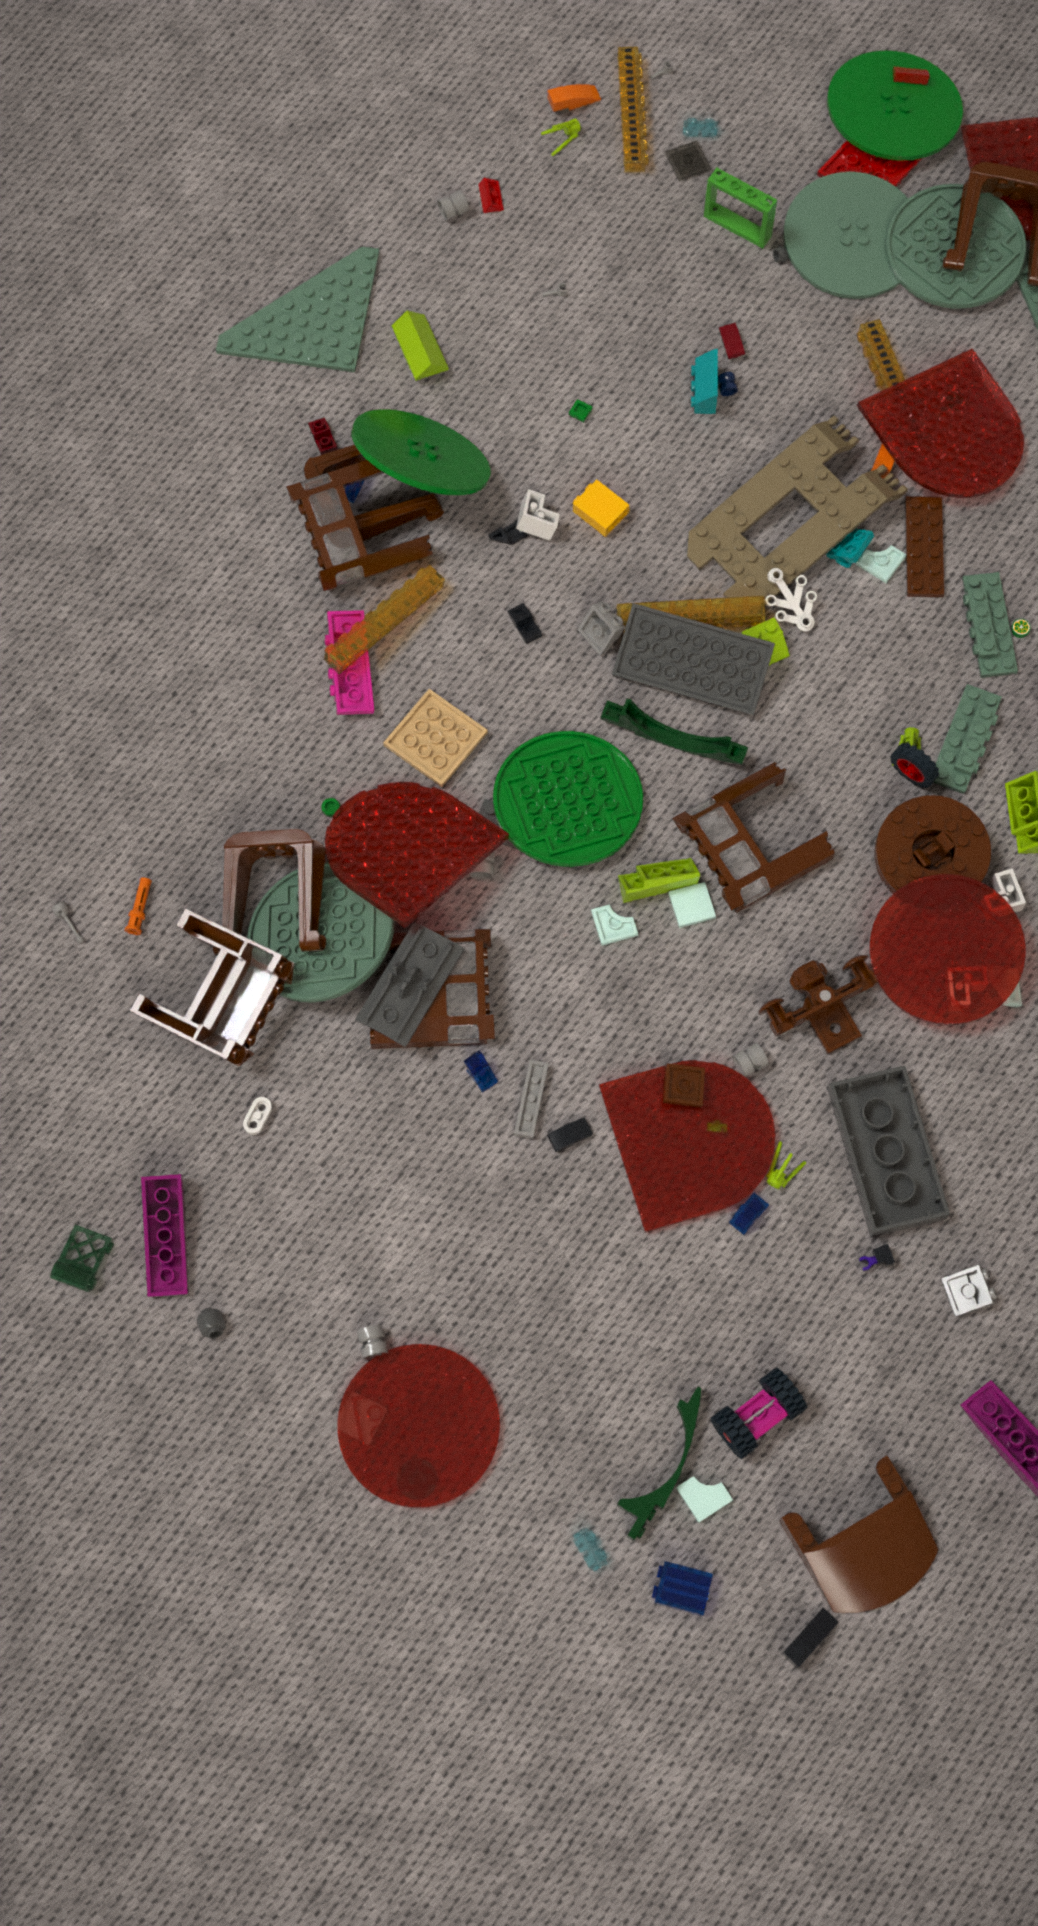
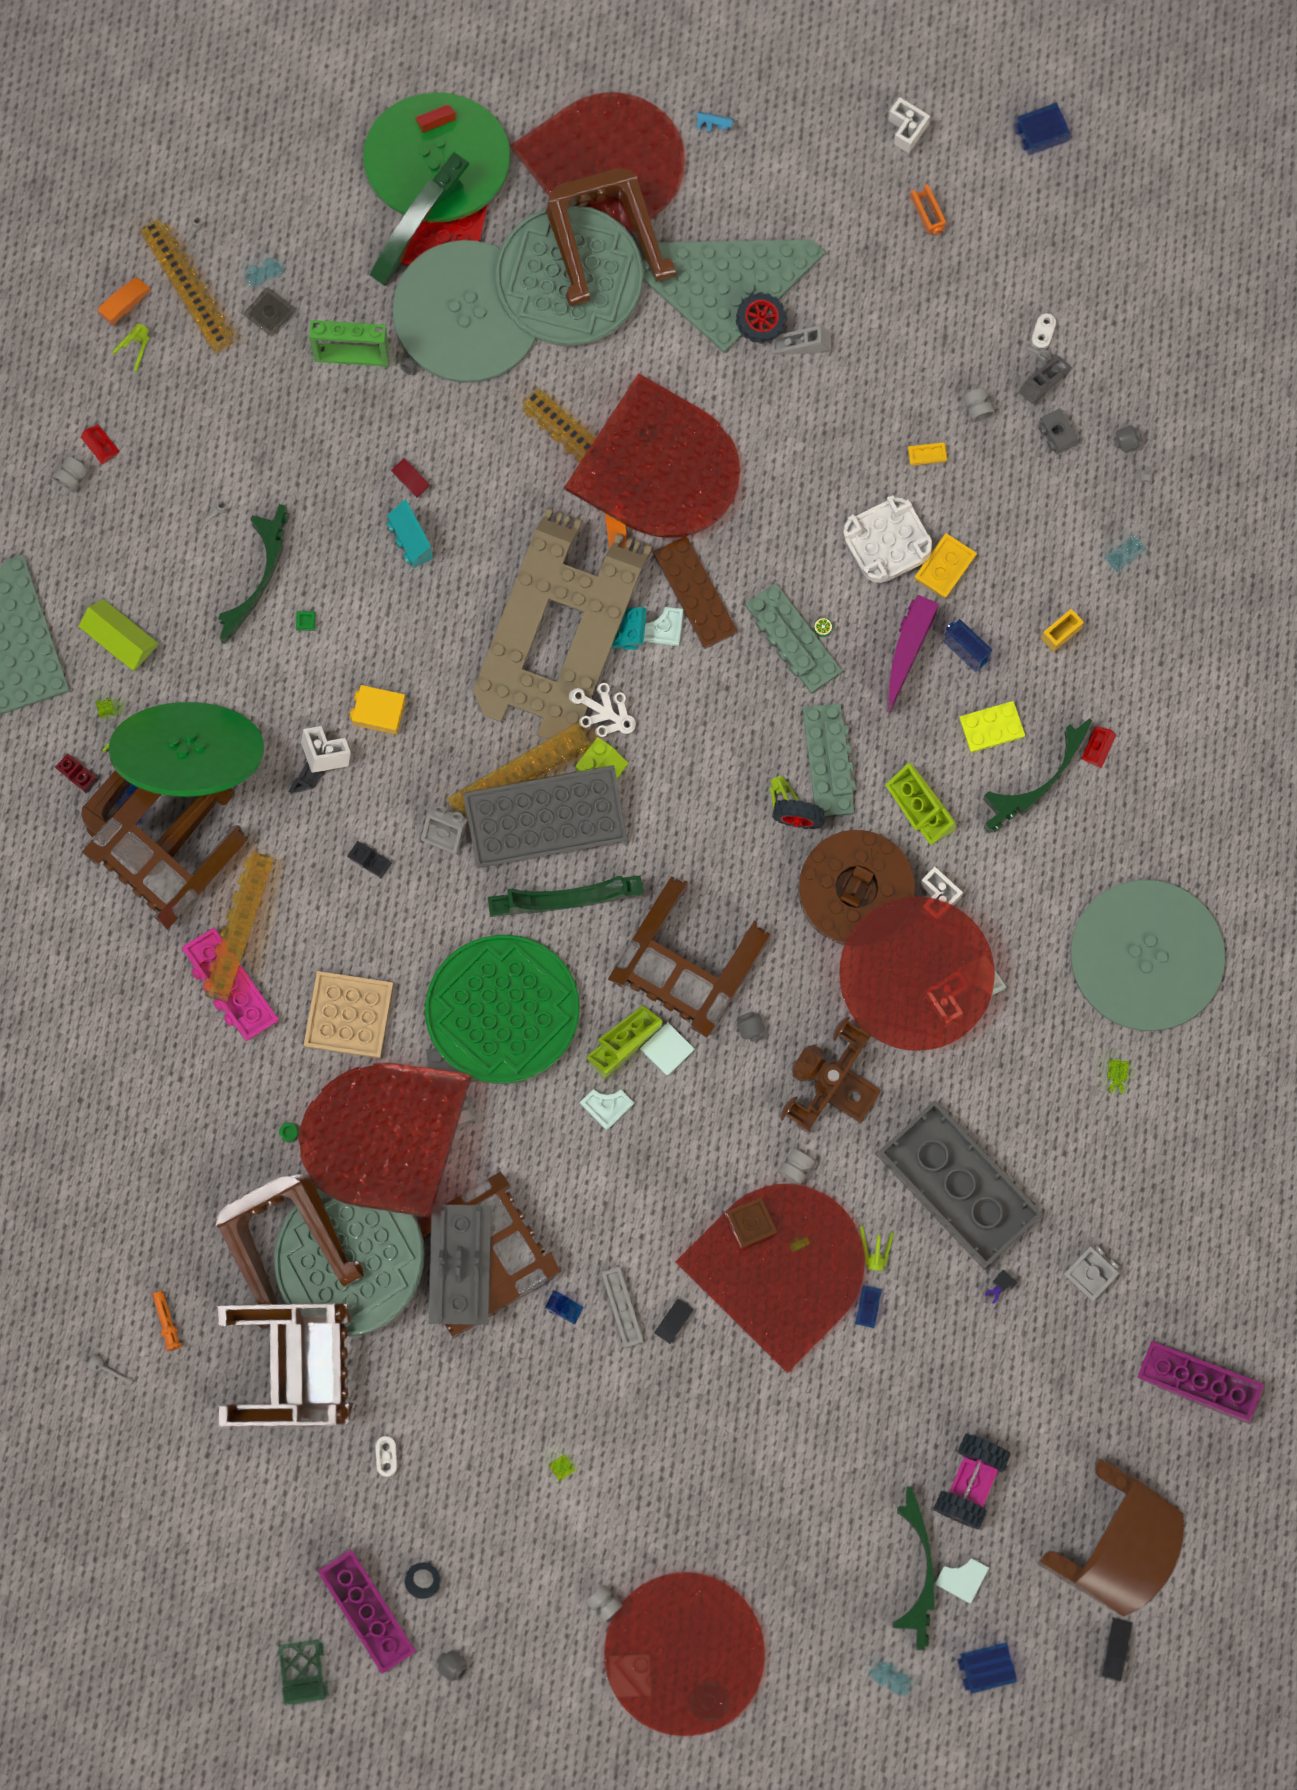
camera: 30 degrees left, 5 degrees up
(227, 1236) = (422, 1580): none -> black wheel
(376, 396) = (105, 707): none -> clear neon green wheel
(402, 1206) = (561, 1467): none -> clear neon green plate
(591, 329) = (270, 532): none -> dark green slope
(727, 383) = (430, 524): dark blue wheel -> none
(775, 922) = (750, 1026): none -> dark grey head
(877, 122) = (431, 195): none -> dark green slope

